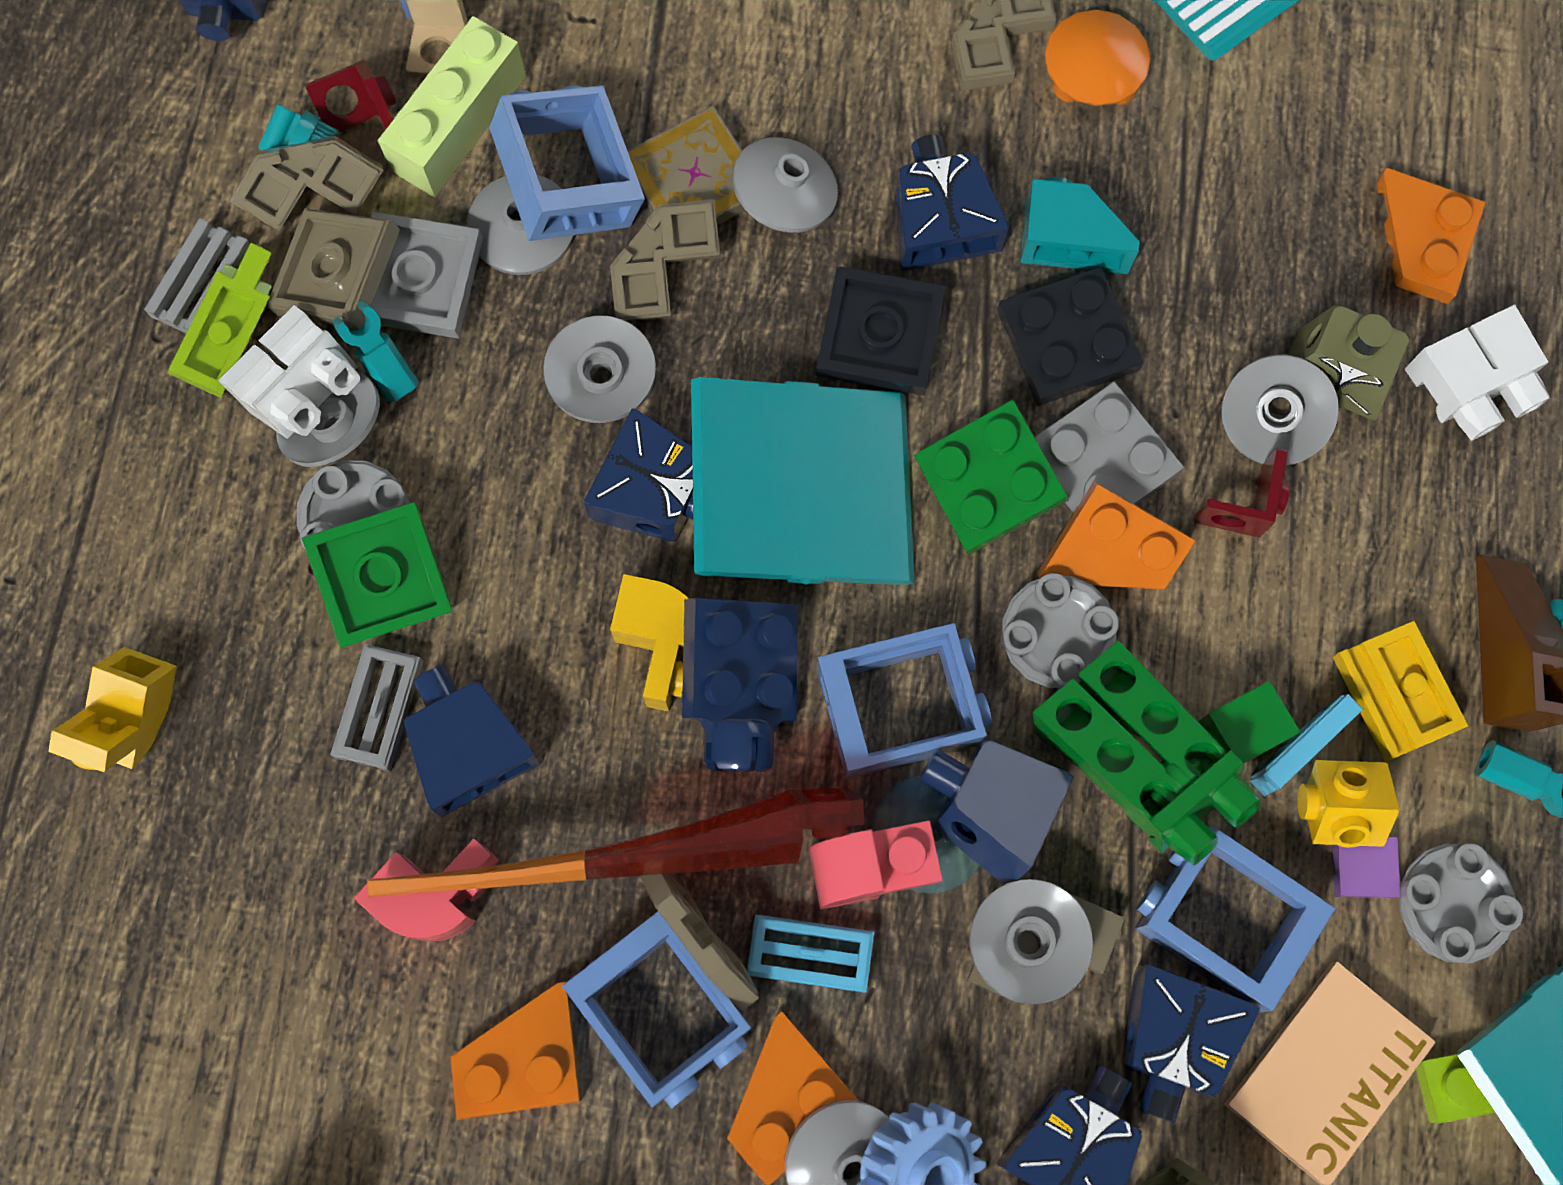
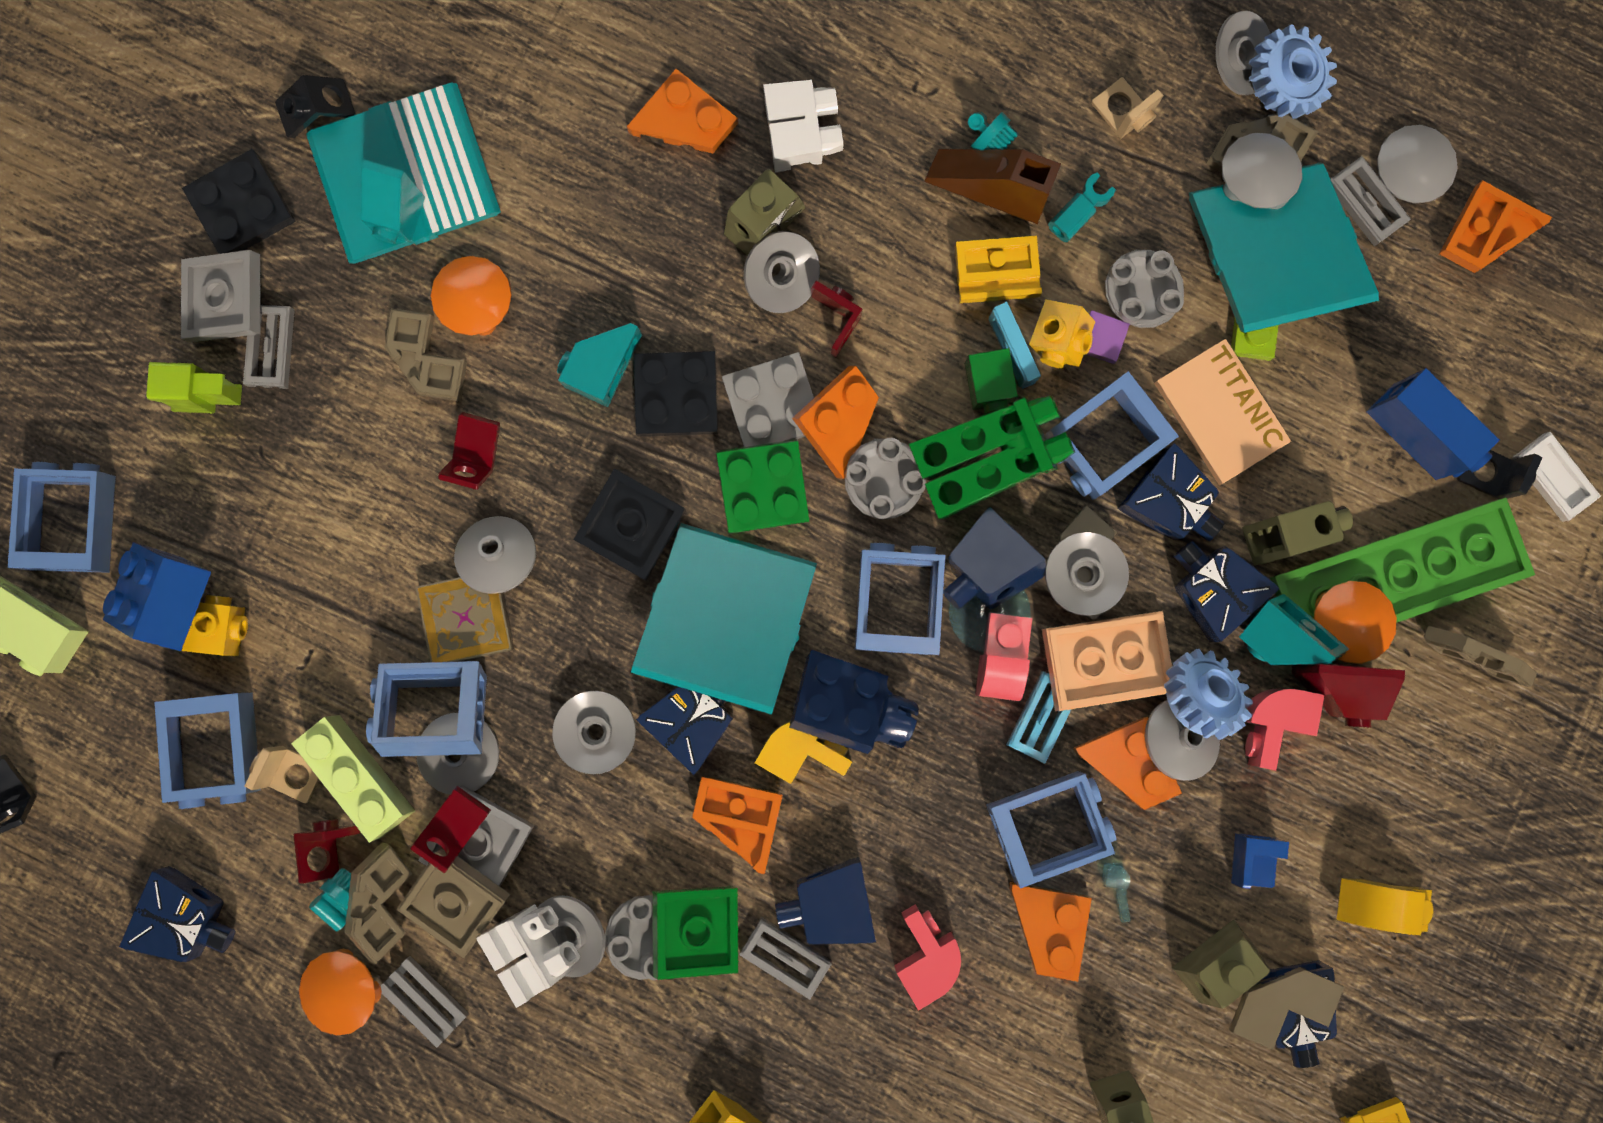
camera: 70 degrees left, 10 degrees up
(183, 175) = (338, 992): none -> orange dish
(223, 323) = (468, 991): lime hinge -> none
(379, 355) = (533, 887): teal bar -> none
(424, 230) = (451, 828): none -> dark red bracket
(546, 586) = (739, 817): none -> orange wing
(619, 1129) = (1117, 877): none -> clear light blue hand
(669, 235) = (509, 651): dark tan tile -> none
(706, 948) = (1028, 784): dark tan tile -> none
(745, 837) = (957, 740): clear red plate -> none
(904, 117) = (473, 451): none -> dark red bracket
(920, 1016) = (1107, 660): none -> light nougat tile
(945, 208) = (552, 447): dark blue torso -> none

